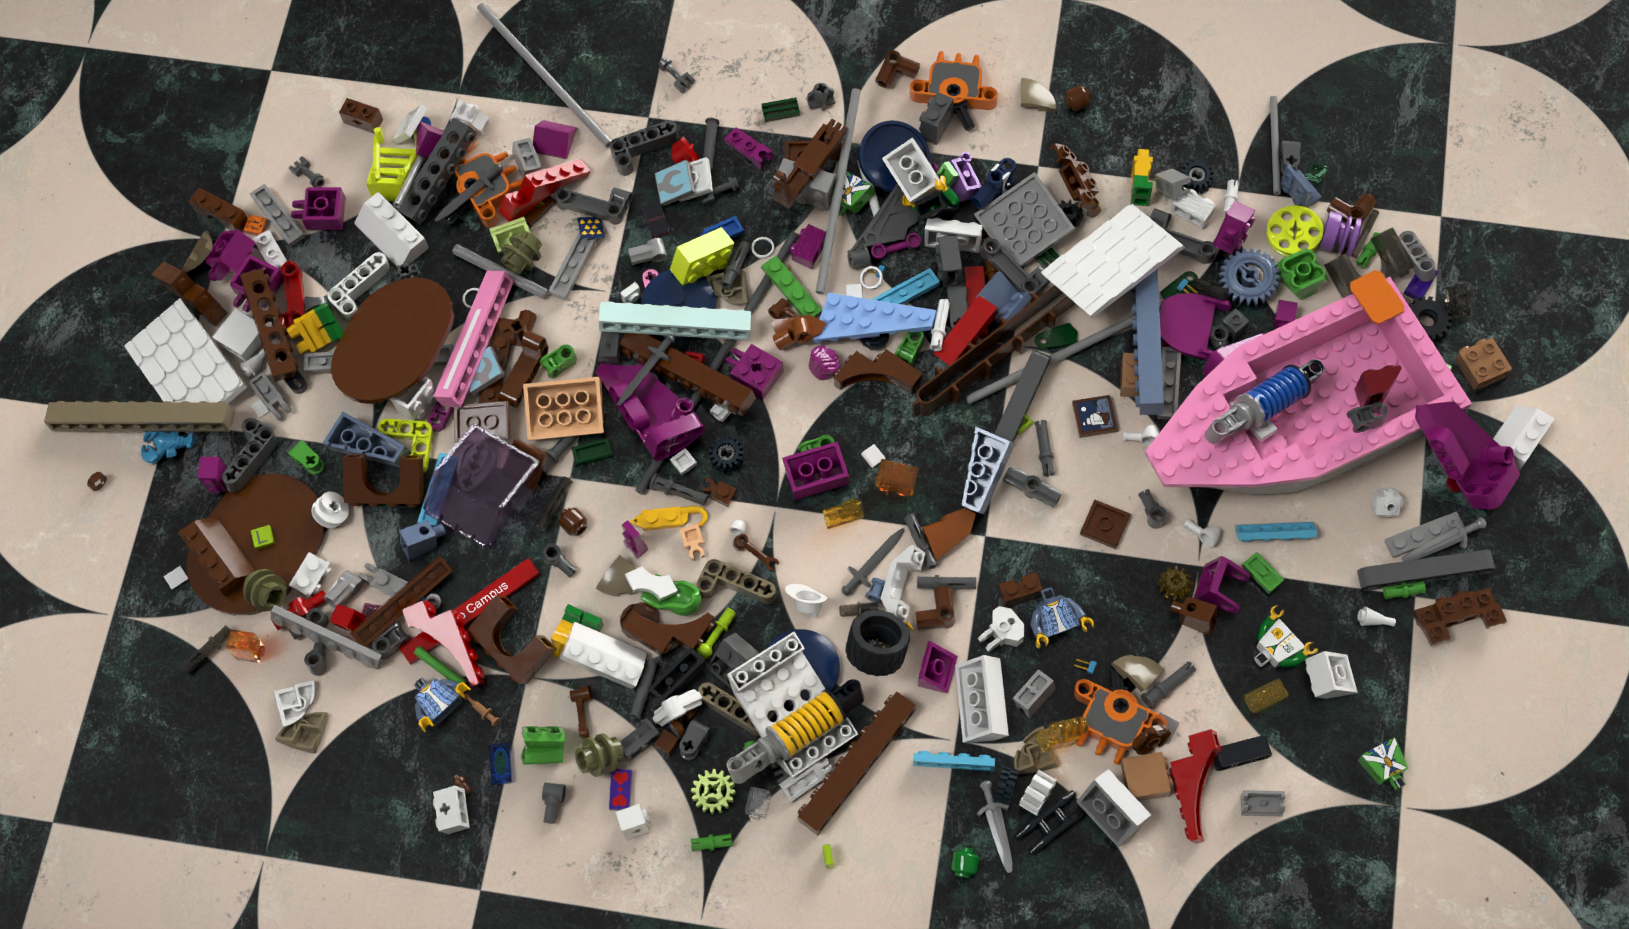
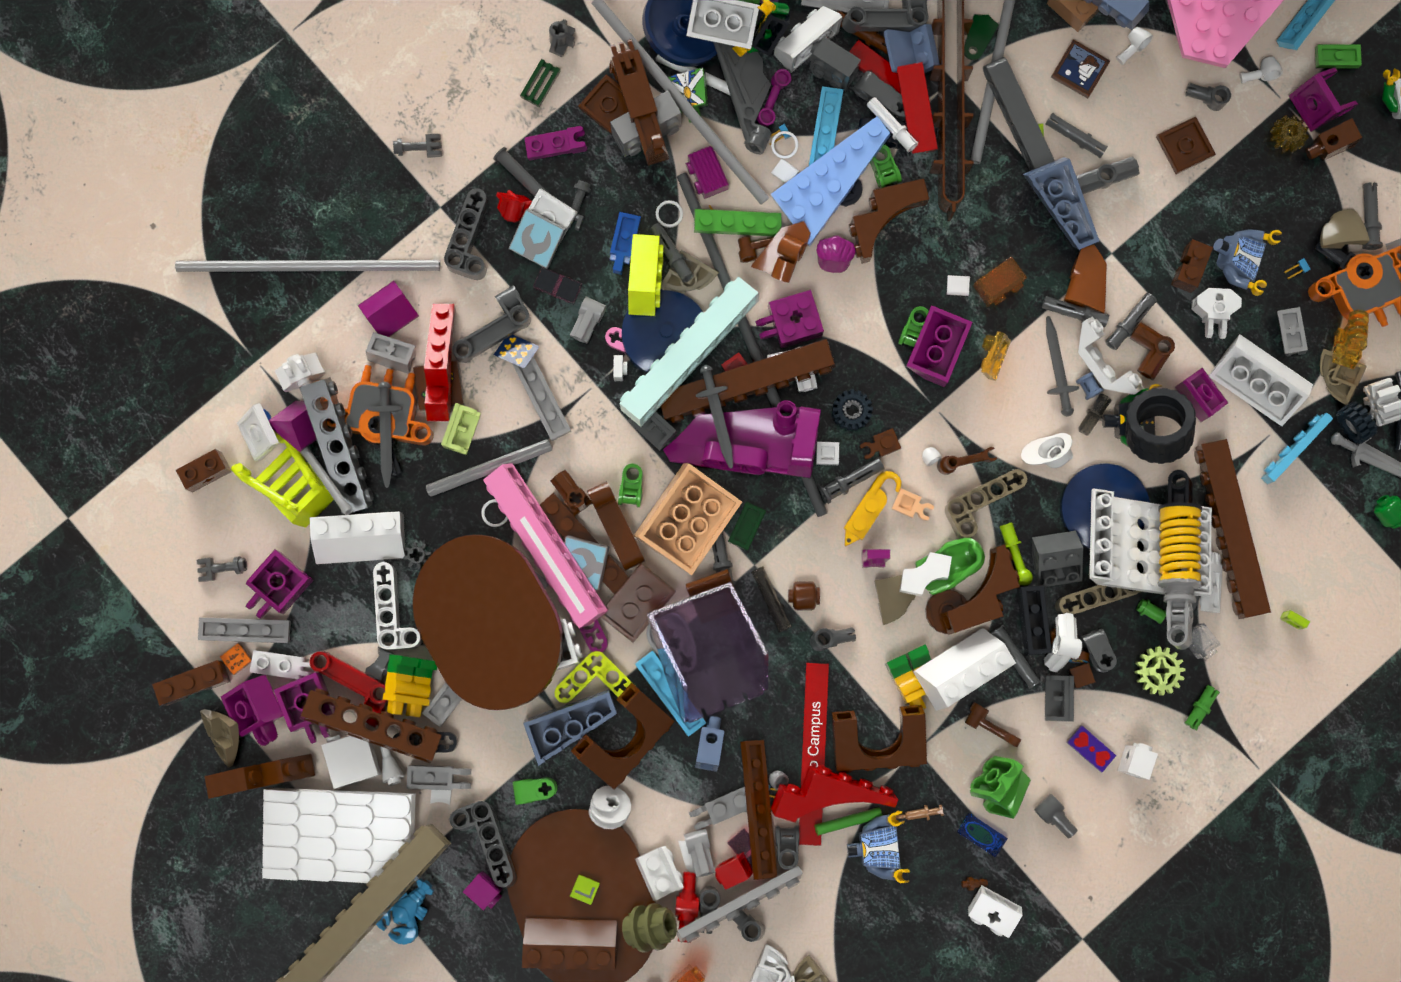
camera: 60 degrees left, 15 degrees up
(521, 252) = (492, 434): olive piece -> none
(599, 755) = (1053, 744): olive piece -> none

